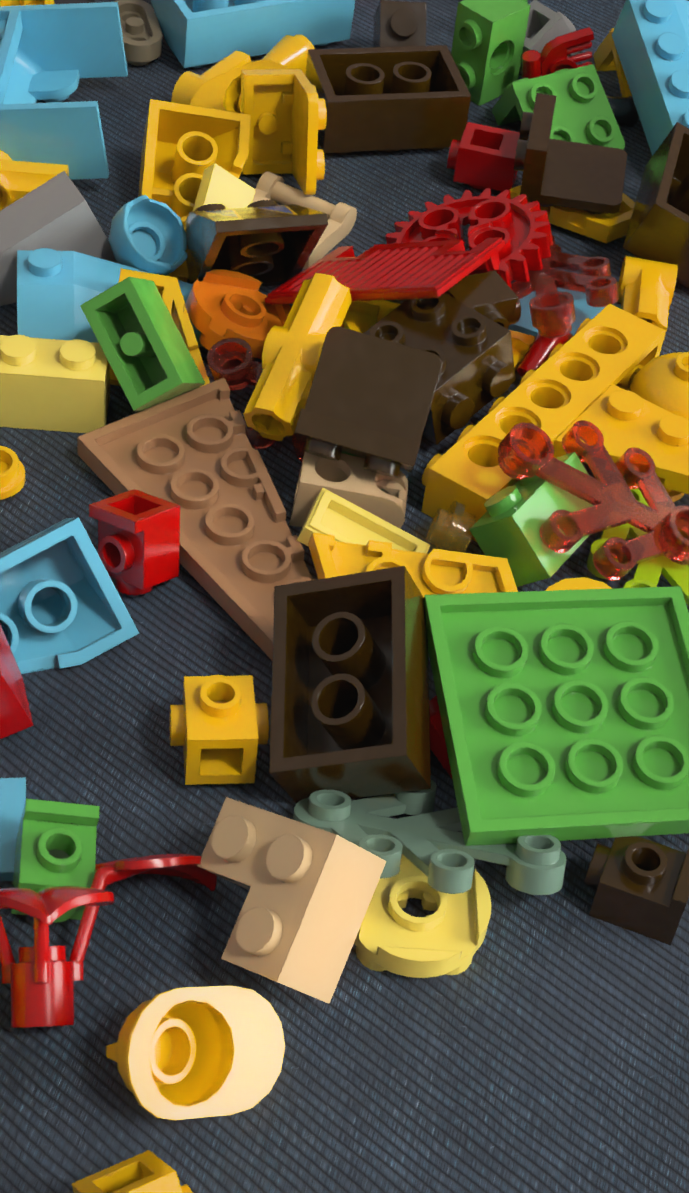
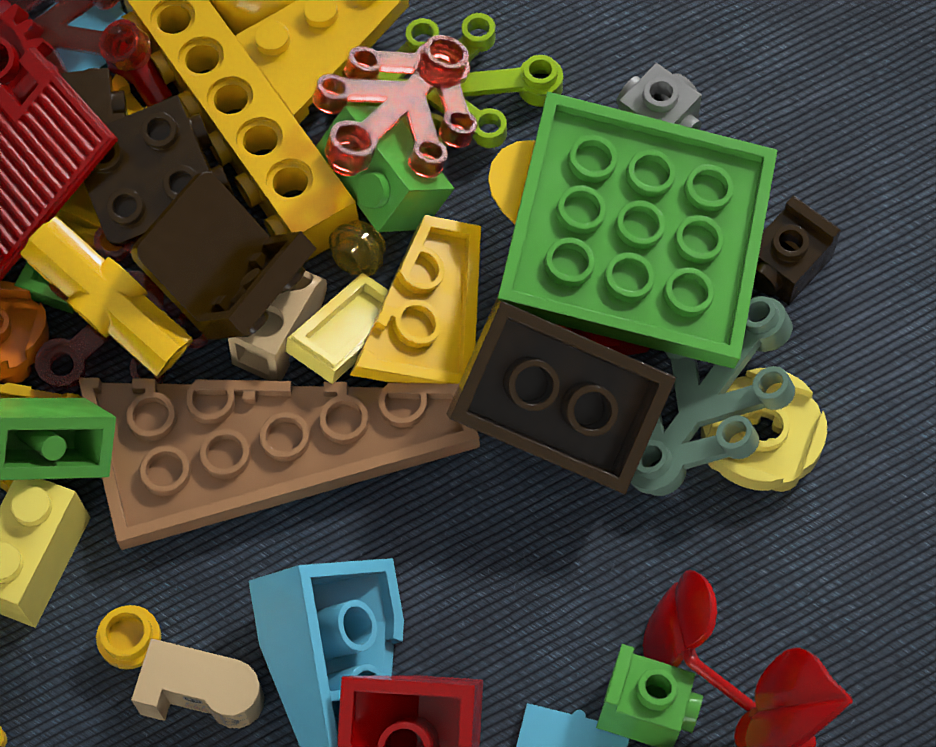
camera: 60 degrees left, 20 degrees up
(138, 540) = (303, 538): red brick -> none
(200, 1051) = (865, 641): piece -> none
(219, 729) = (543, 521): yellow brick -> none
(301, 898) = (752, 503): tan brick -> none

